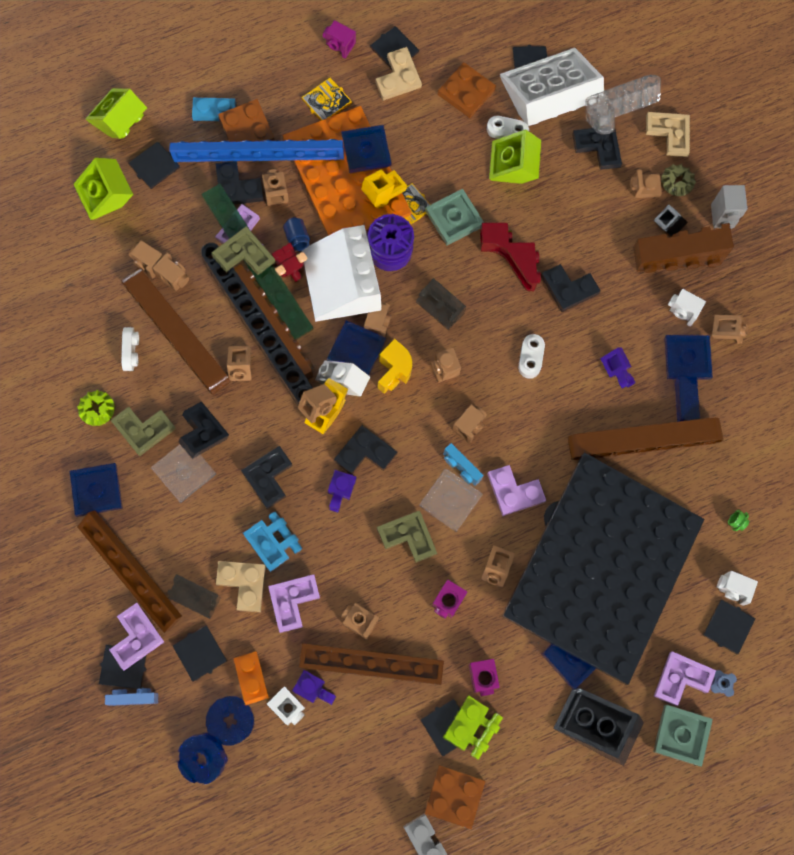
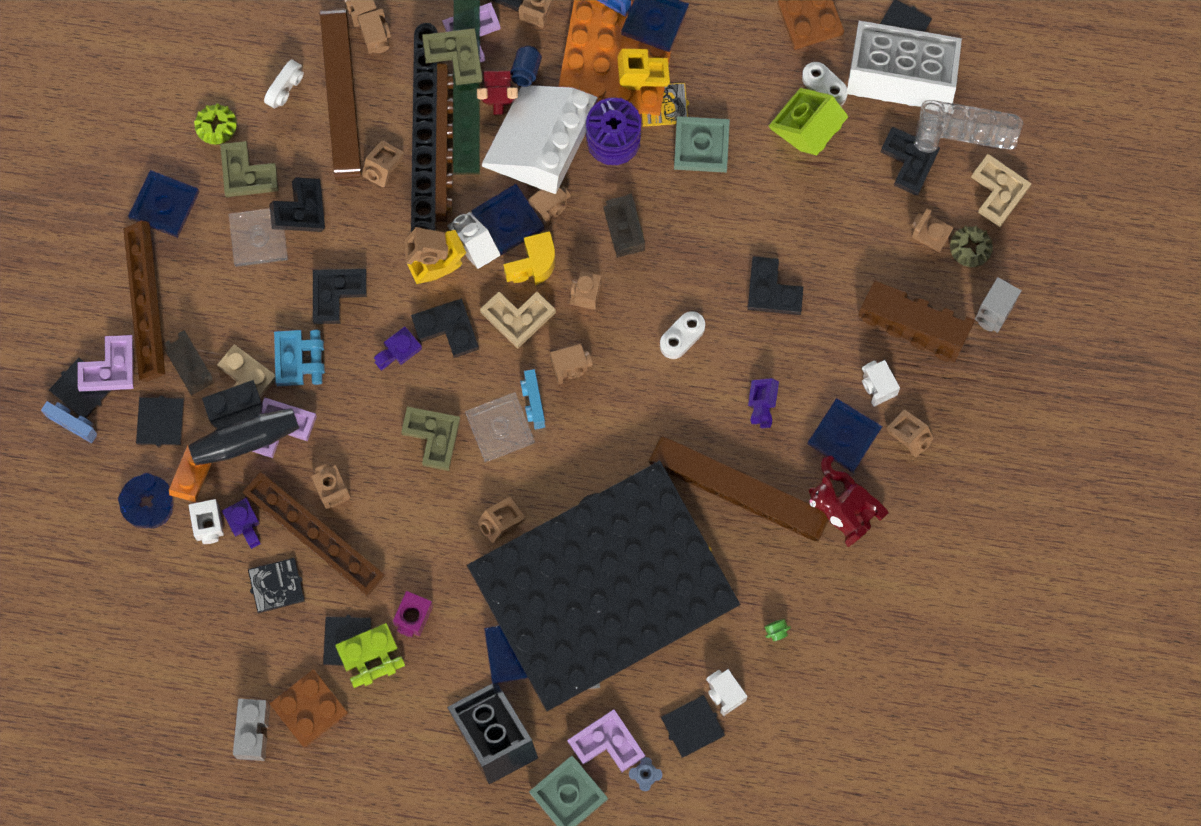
camera: 40 degrees right, 0 degrees up
(213, 752) = (110, 517): clear blue plate -> none
(265, 619) = (239, 425): none -> black plate
(368, 720) = (276, 585): none -> piece
(410, 419) = (516, 323): none -> tan plate
(449, 589) = (432, 509): magenta brick -> none
(513, 497) = (563, 463): lavender plate -> none
(520, 256) = (742, 226): dark red arch -> none
(670, 220) = (930, 284): black slope -> none
(687, 399) = (810, 476): clear blue slope -> none
(726, 404) = (851, 509): none -> dark red animal

